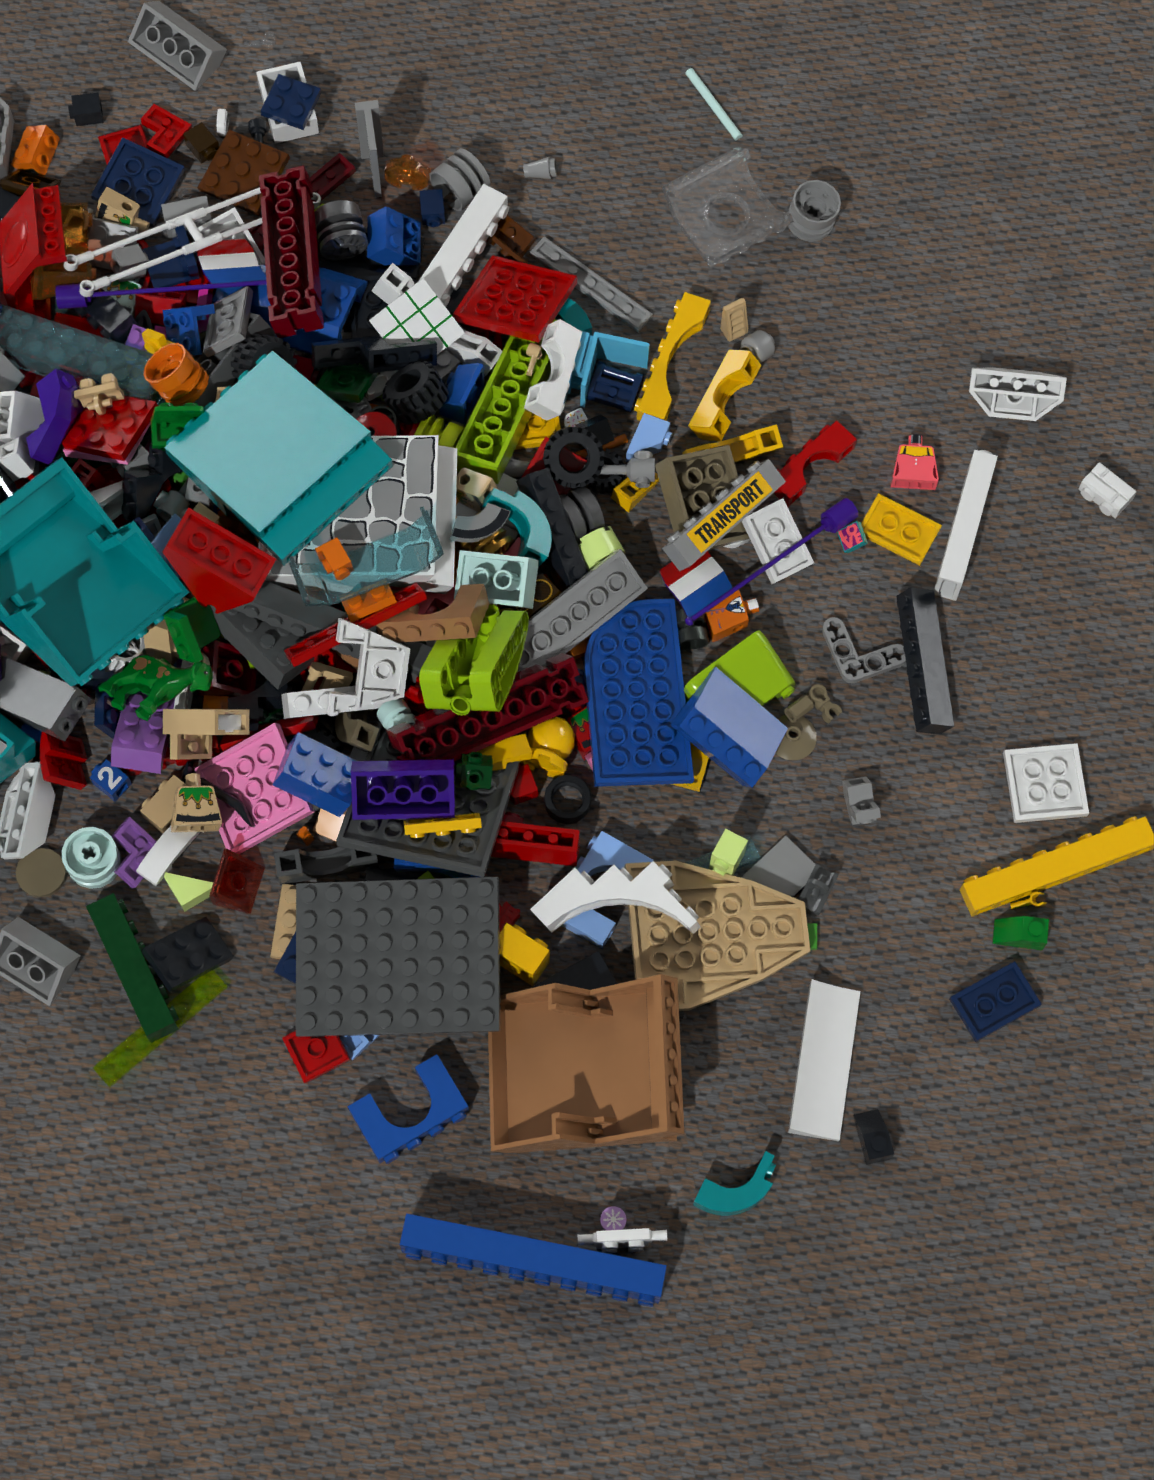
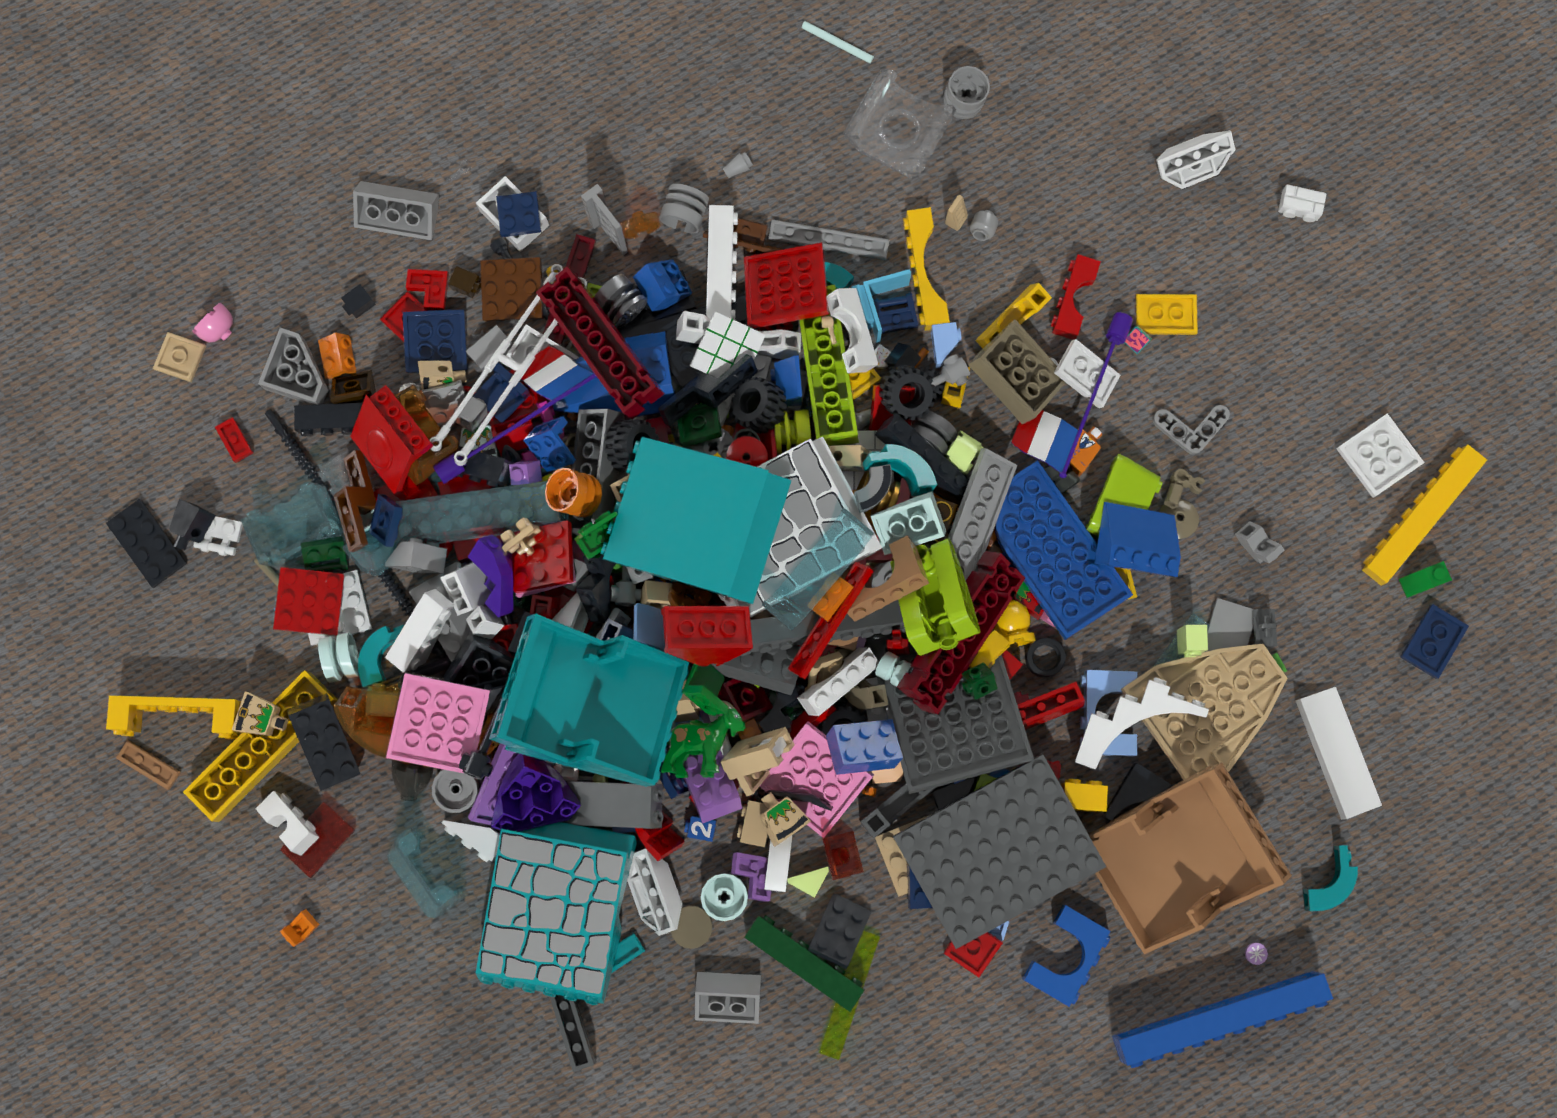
camera: 25 degrees left, 10 degrees up
(154, 340) = (541, 471): yellow bracket -> none
(222, 122) = (471, 257): white tile -> none
(229, 321) = (584, 424): light grey tile -> none
(335, 559) = (793, 582): orange brick -> none
(379, 673) = (866, 646): white wing -> none
(403, 789) = (939, 727): dark purple brick -> none
(432, 207) = (674, 241): dark blue brick -> none
(442, 826) = (981, 737): yellow plate -> none
(629, 1238) = (1270, 971): white plate -> none
(723, 515) = (1043, 378): brick -> none
(735, 372) = (979, 254): yellow arch -> none
(873, 1137) = (1405, 790): black slope -> none
(915, 466) = (1152, 258): coral torso -> none
(925, 661) = (1244, 409): black brick -> none
(965, 524) = (1217, 286): white brick -> none
(1029, 901) = (1416, 552): yellow hand -> none

